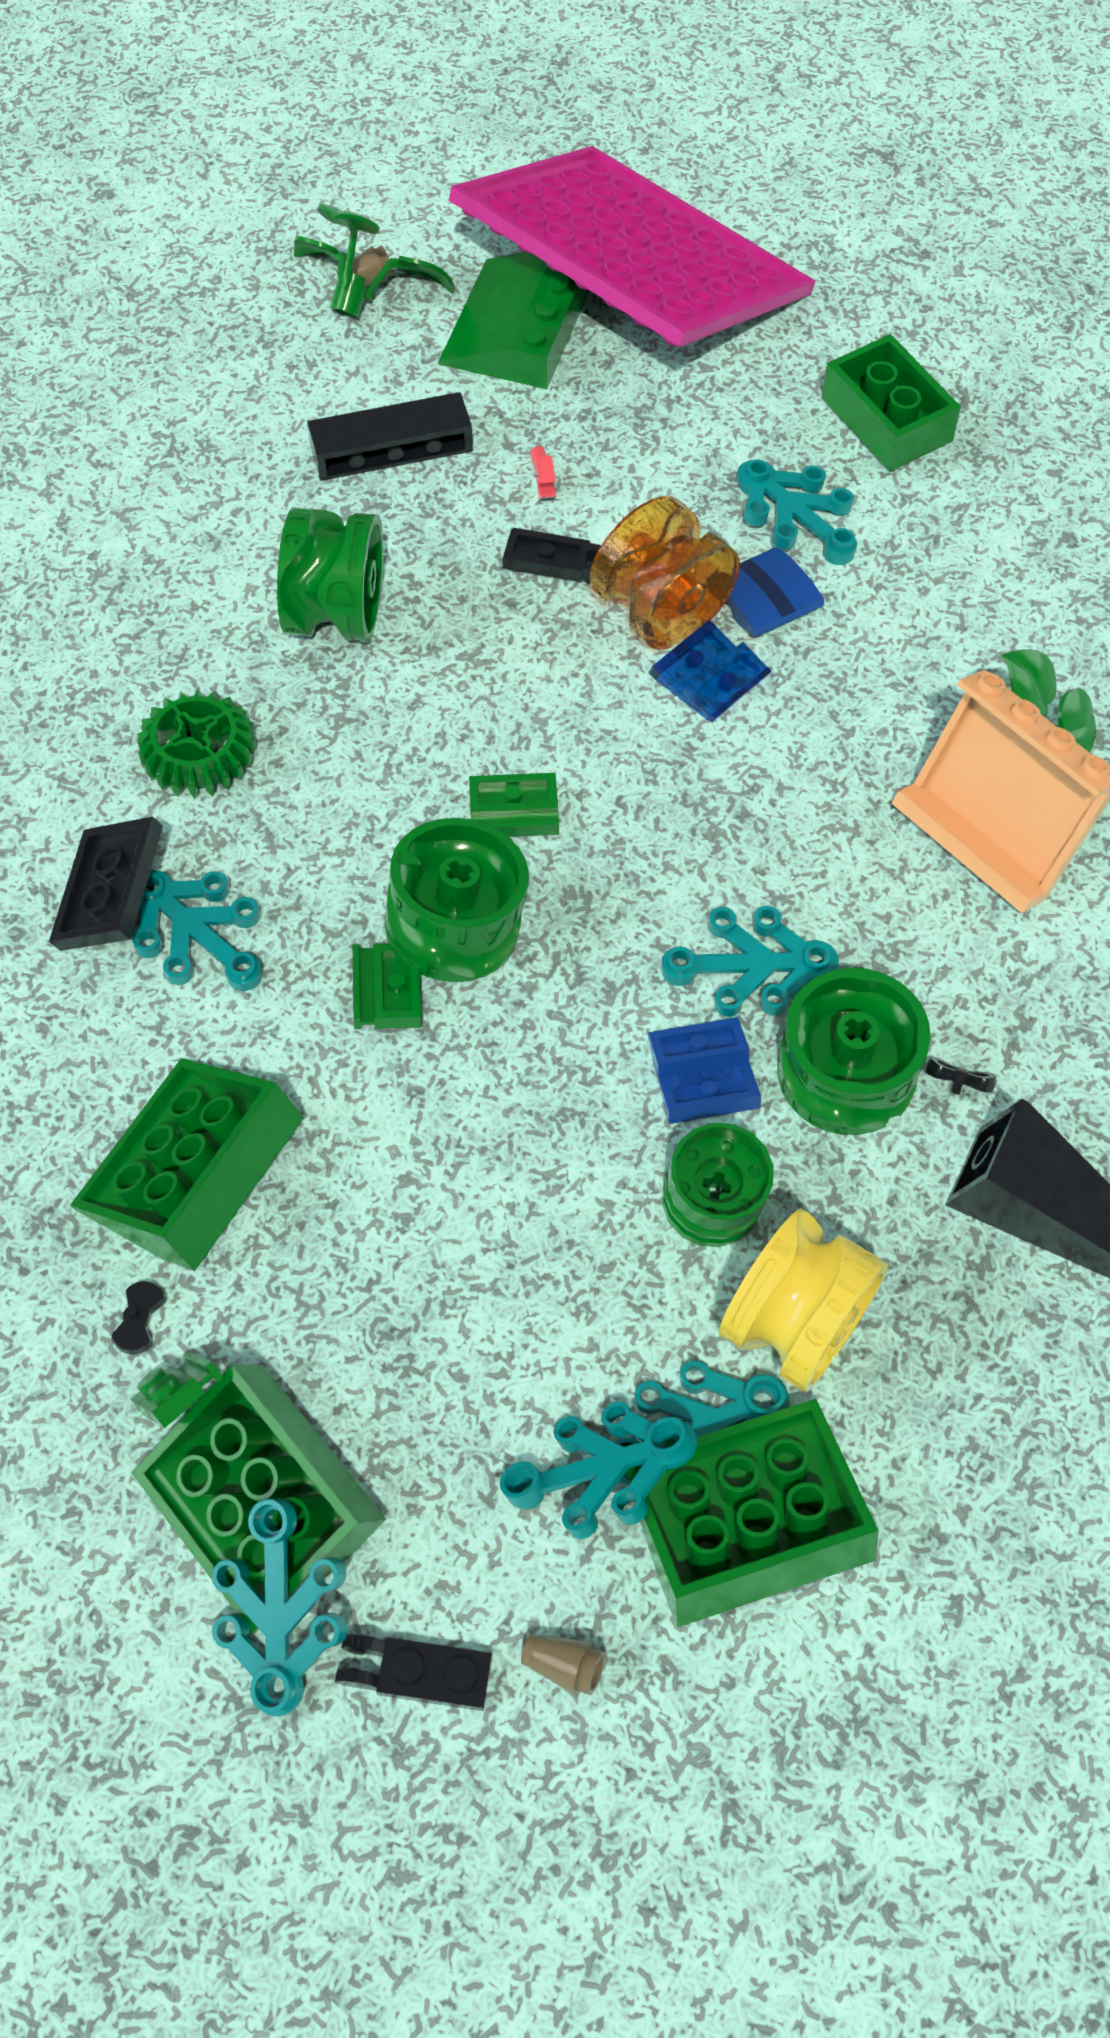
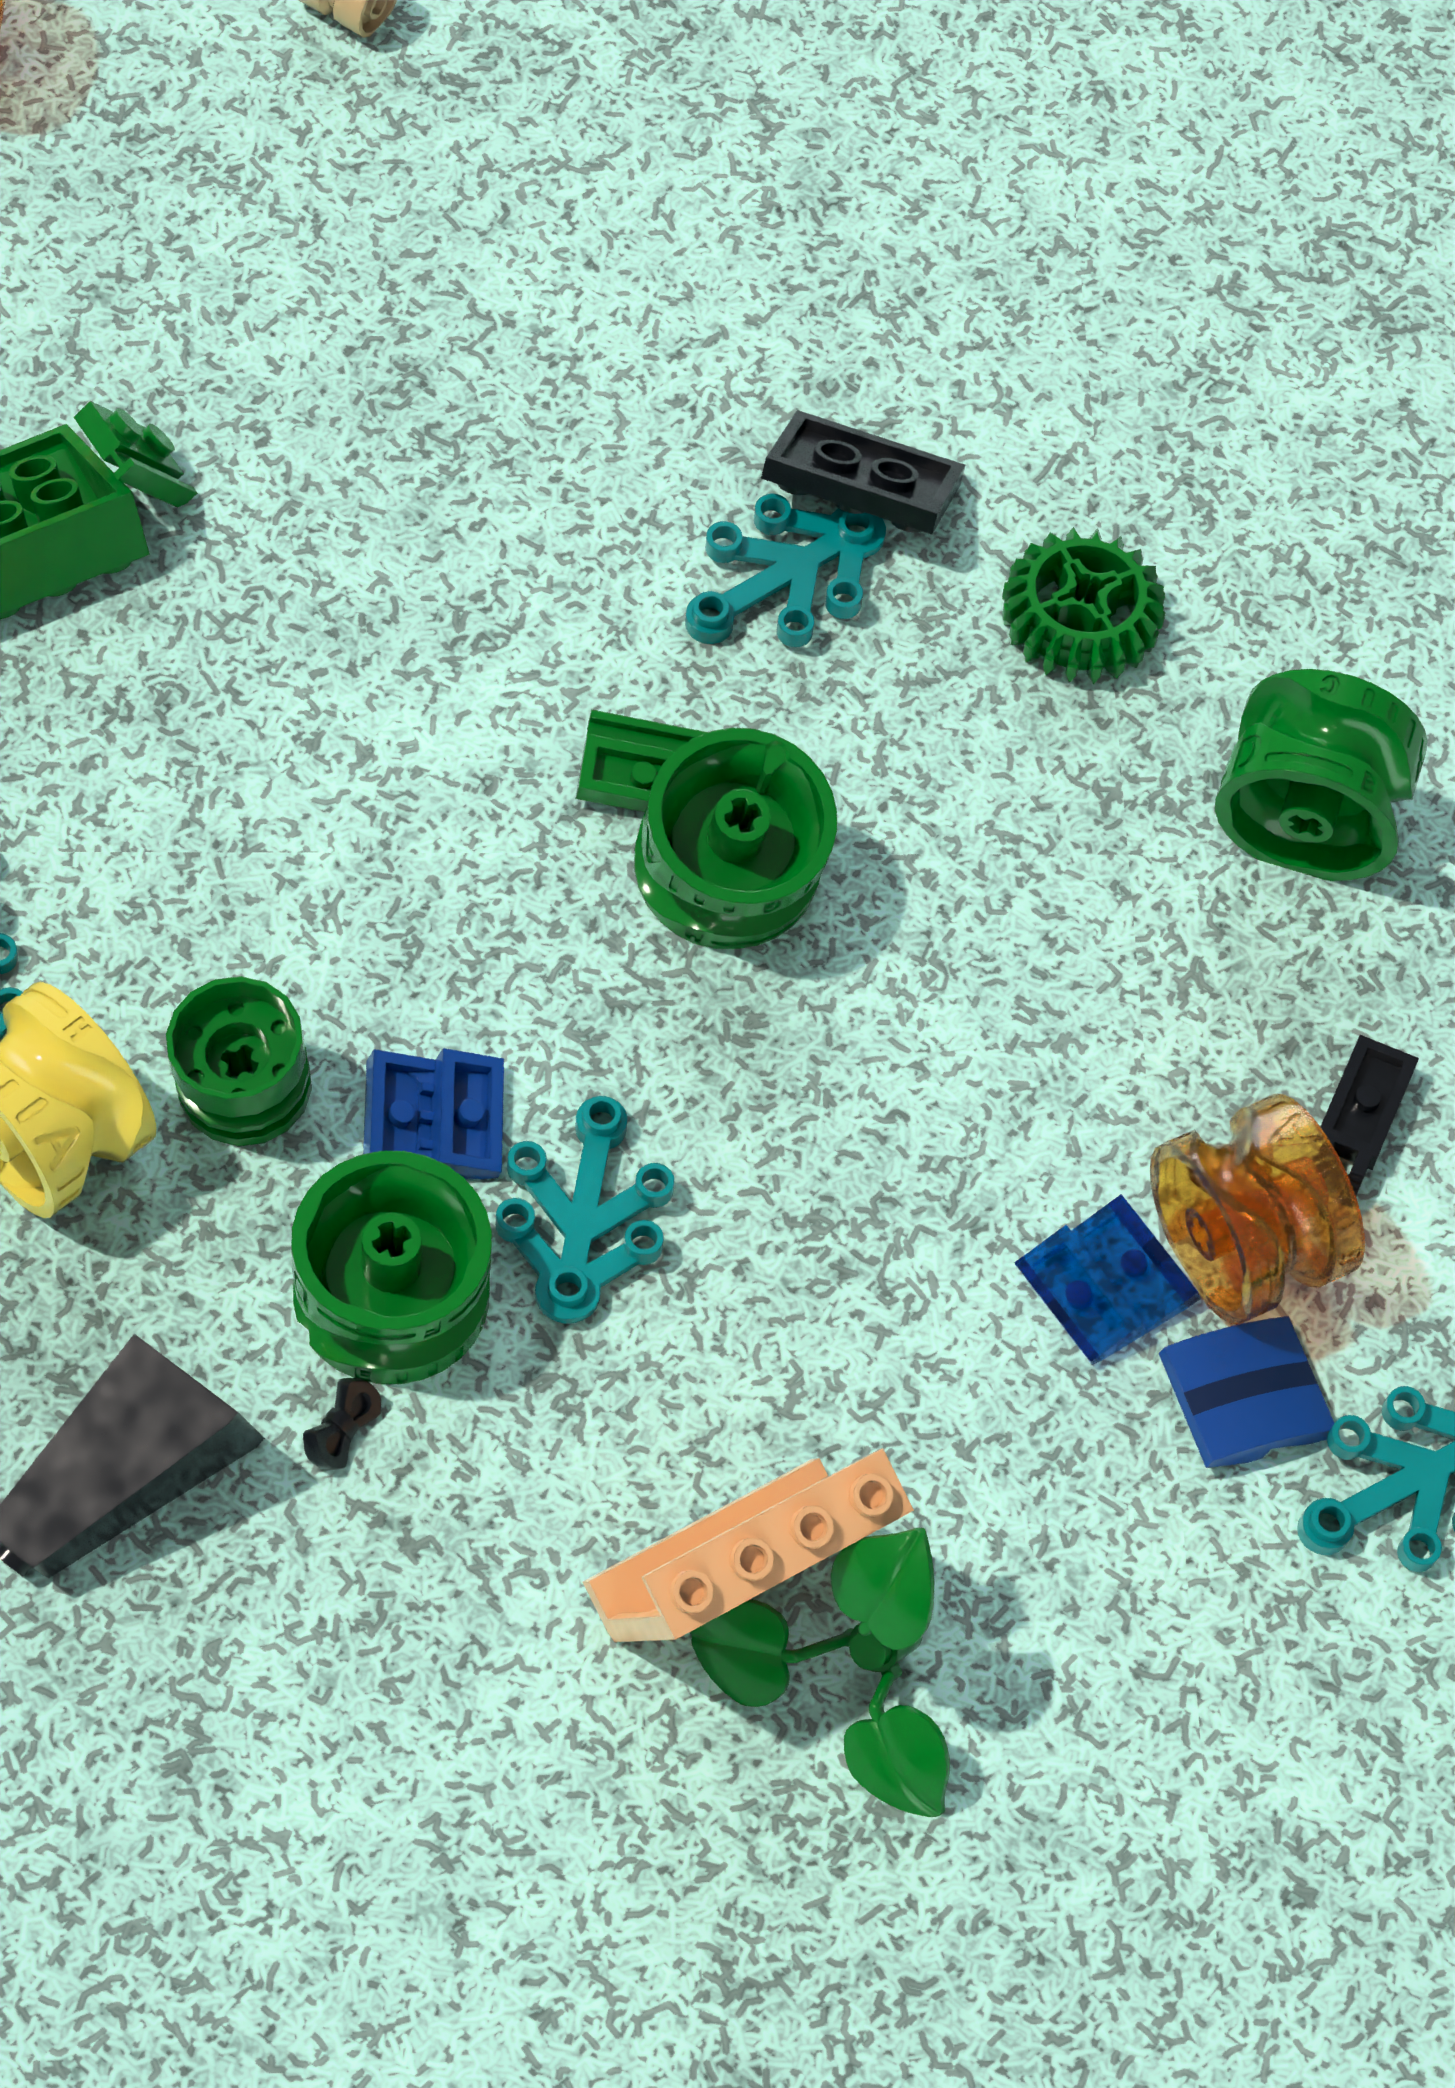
camera: 95 degrees right, 0 degrees up
(142, 1301) = (235, 443): black piece -> none
(189, 1161) = (439, 518): green slope -> none
(516, 803) = (907, 969): green plate -> none

